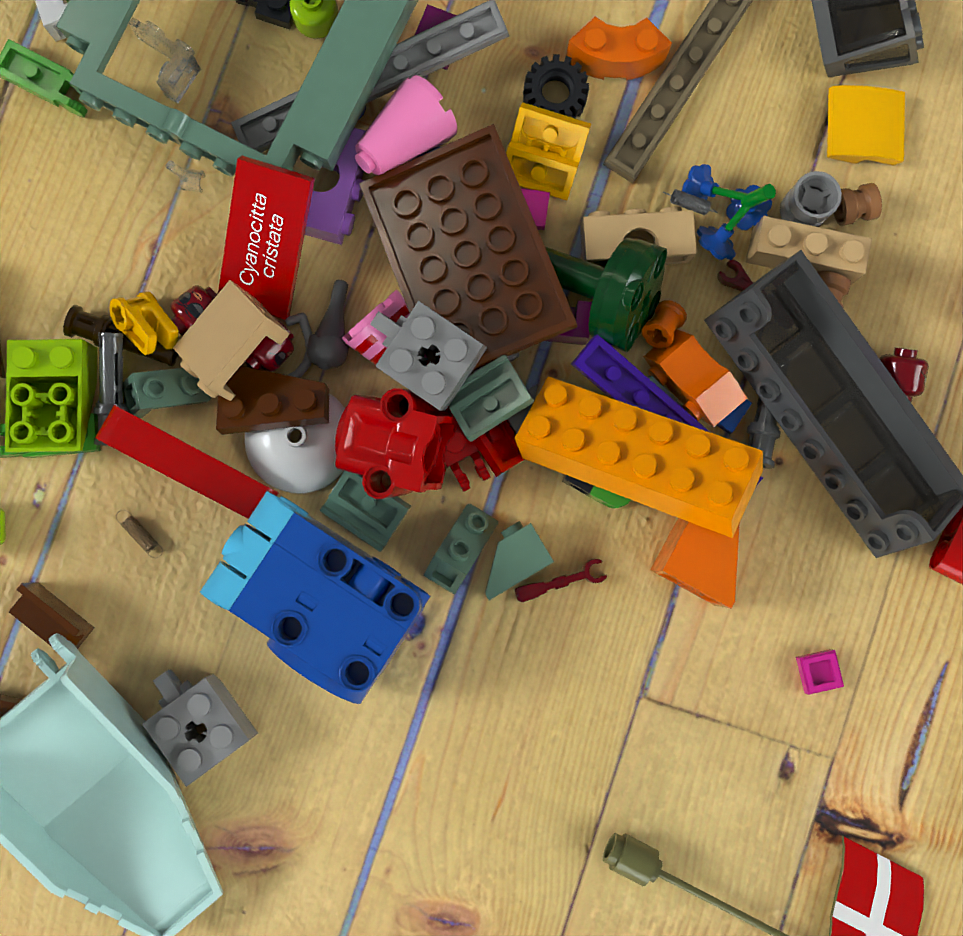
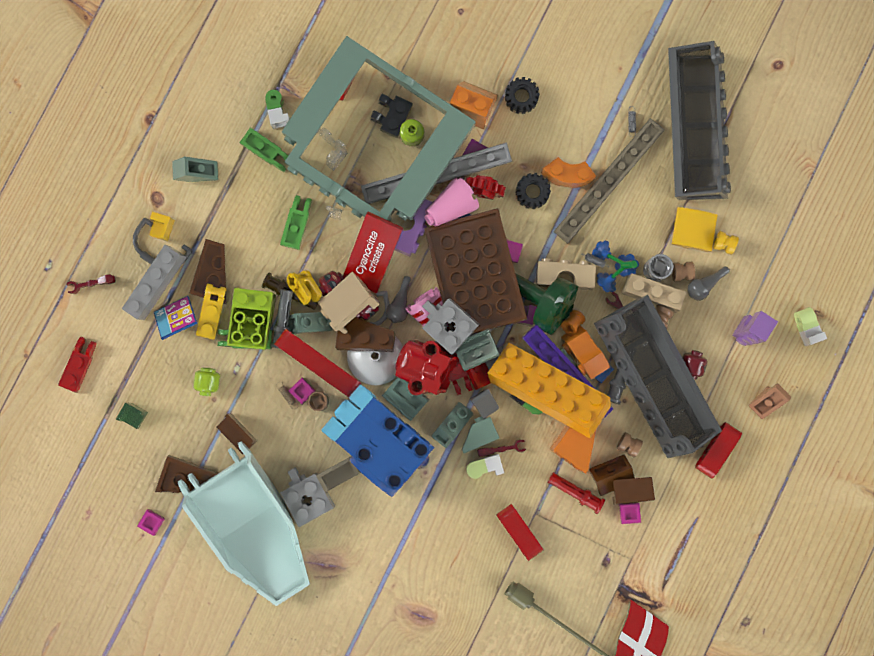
camera: 10 degrees right, 0 degrees up
(117, 208) = (296, 224): none -> bright green hinge
(167, 521) = (302, 390): none -> dark pink tile
(191, 535) = (318, 401): none -> medium nougat wheel
(247, 675) = (337, 474): none -> dark tan panel
(466, 90) = (485, 187): none -> red gear
(518, 498) = (485, 403): none -> dark grey slope
(520, 623) = (478, 467): none -> leg
(546, 149) = (524, 222): yellow slope -> none
(616, 737) = (519, 532): none -> red beam
(729, 652) = (584, 496): none -> red pin
(778, 603) = (607, 472): none -> reddish brown panel
(802, 542) = (629, 445): none -> medium nougat wheel
(822, 628) = (633, 490): none -> reddish brown panel
(895, 230) = (700, 288): none -> dark grey piece
(928, 140) = (725, 242): none -> yellow wheel

